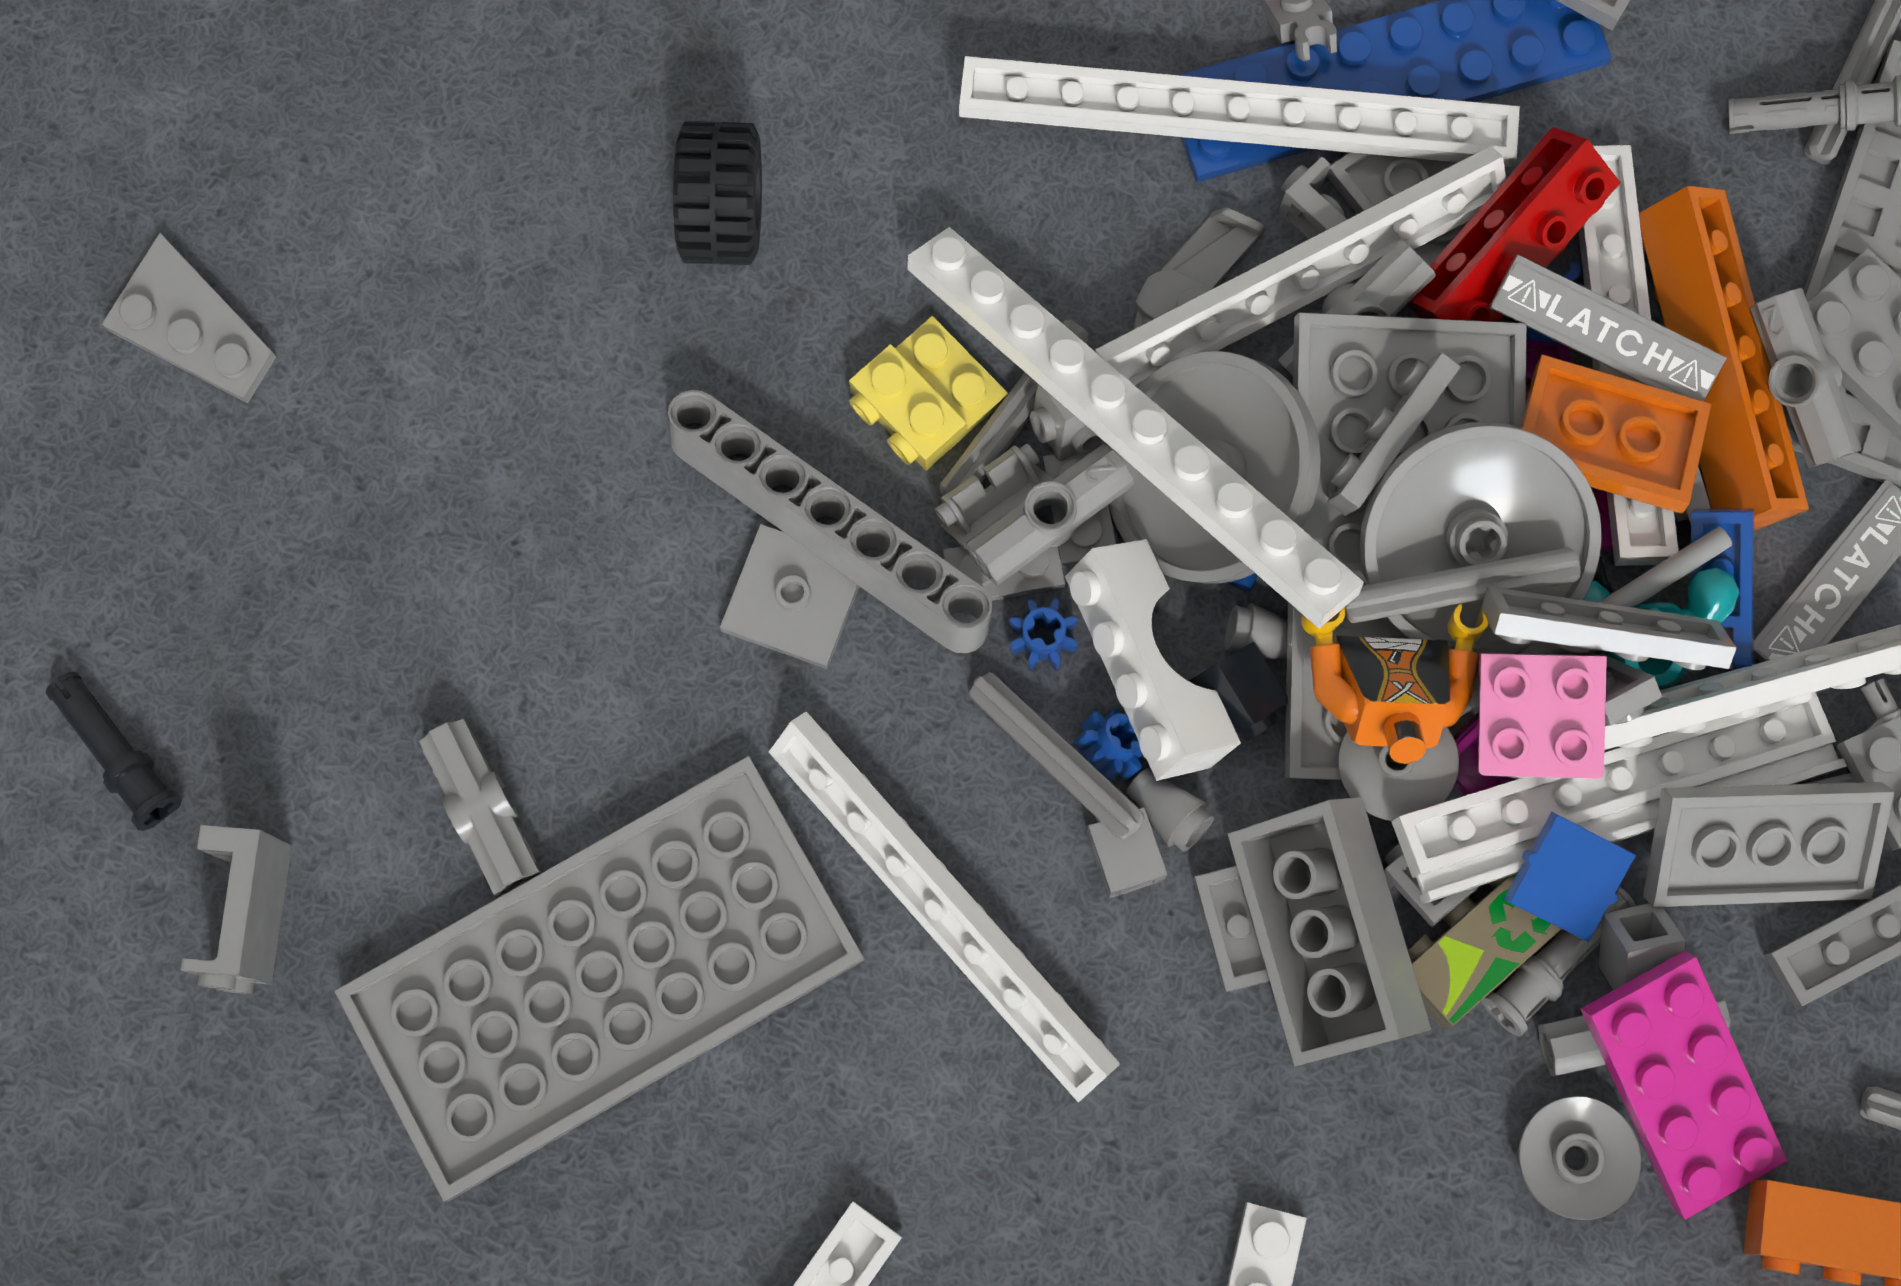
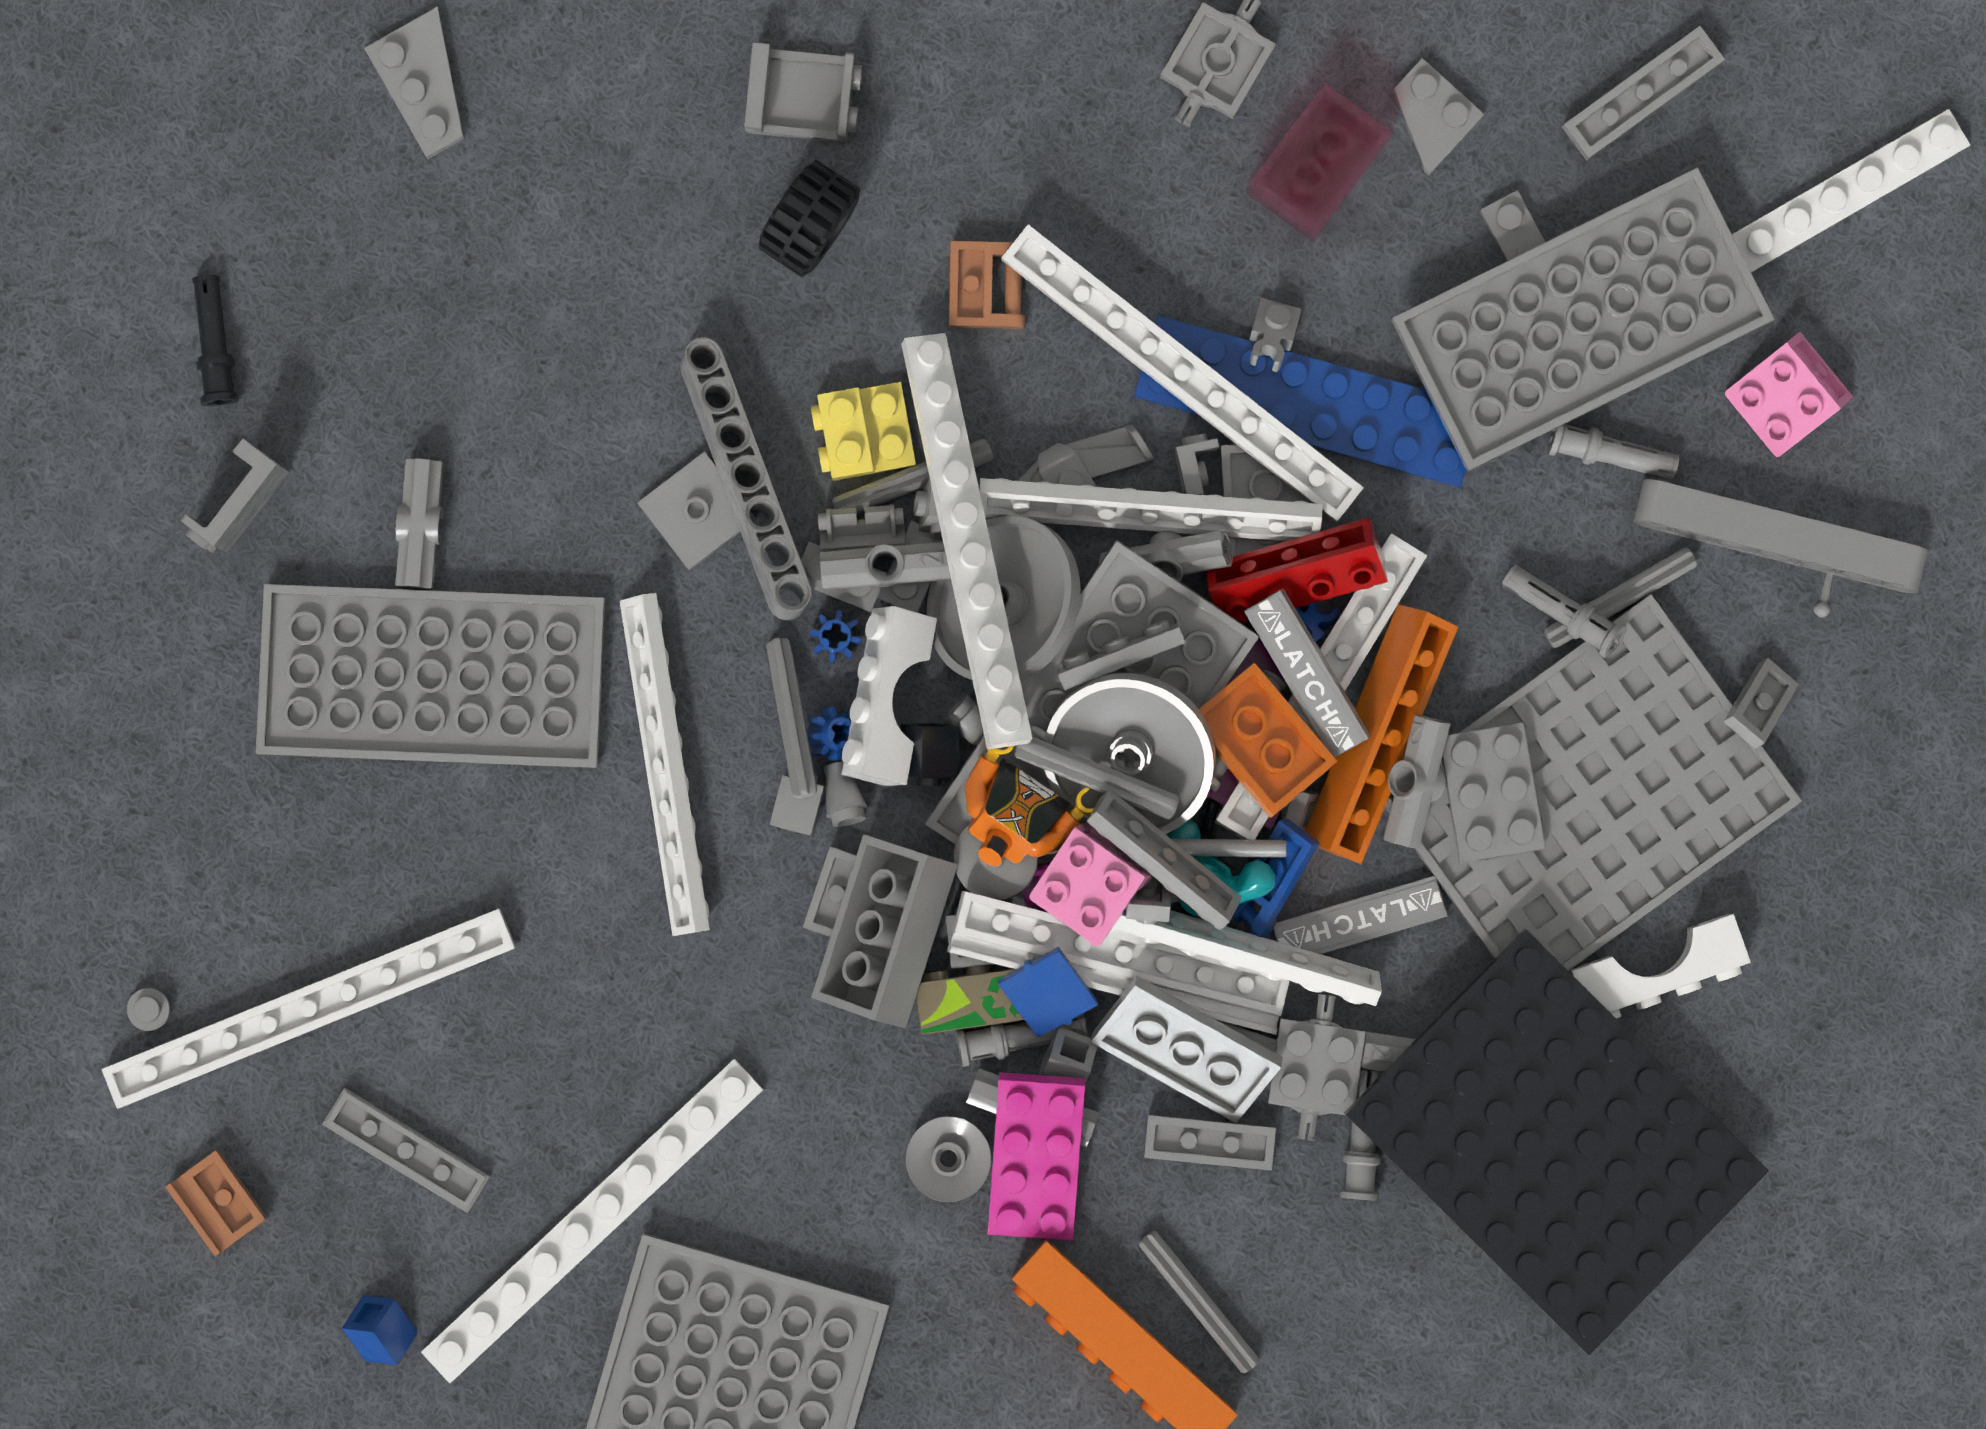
camera: 30 degrees right, 10 degrees up
(627, 85) = (801, 94): none -> light grey panel
(945, 169) = (972, 287): none -> nougat plate

